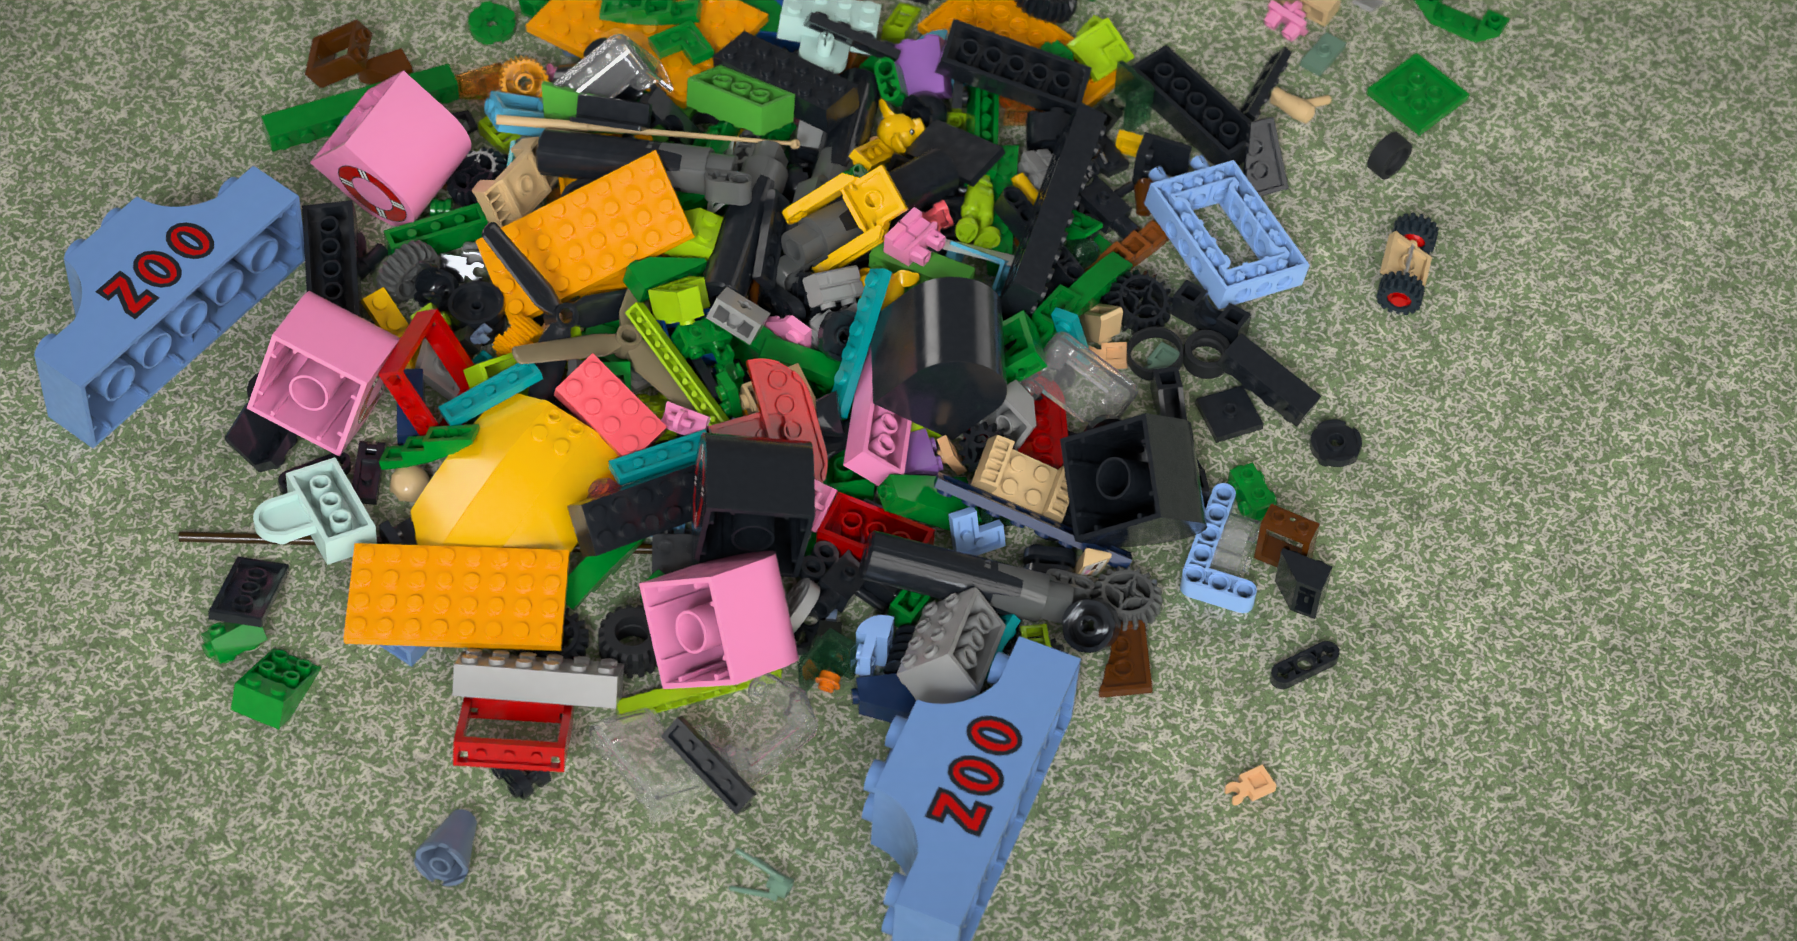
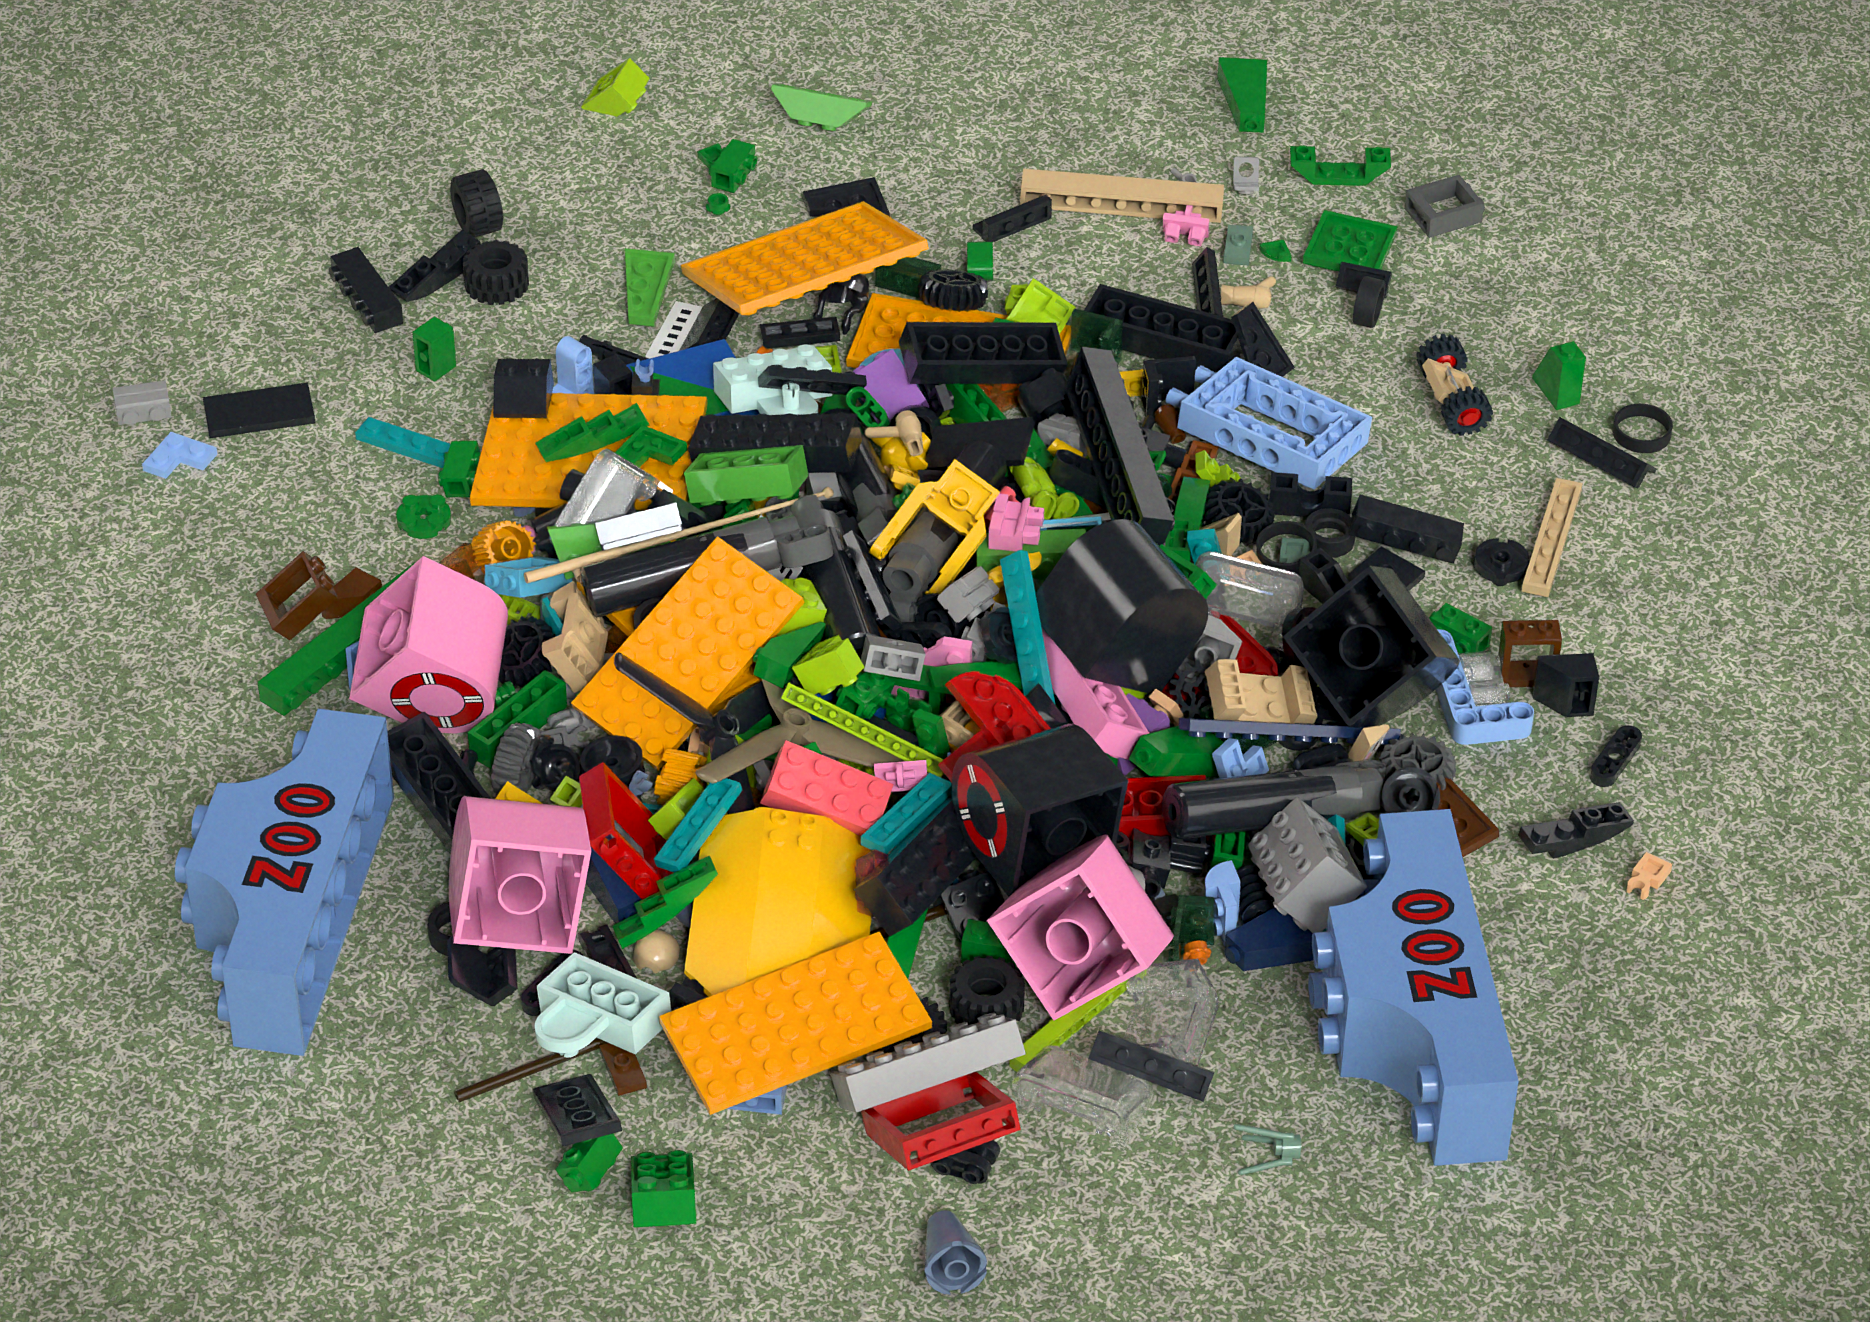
camera: 25 degrees left, 10 degrees down
(316, 573) = (623, 1069): none -> reddish brown plate
(902, 114) = (907, 428): none -> tan piece
(1142, 259) = (1210, 470): none -> lime slope
(1221, 719) = (1580, 831): none -> black slope
(1352, 72) = (1276, 249): none -> green tile
(1395, 440) = (1552, 537): none -> tan plate
(1398, 123) = (1351, 276): none -> black plate
(1495, 379) = (1599, 453): none -> black panel
(1506, 296) = (1561, 375): none -> green slope
(1525, 106) = (1432, 223): none -> dark grey window
(1545, 393) = (1642, 410): none -> black tyre

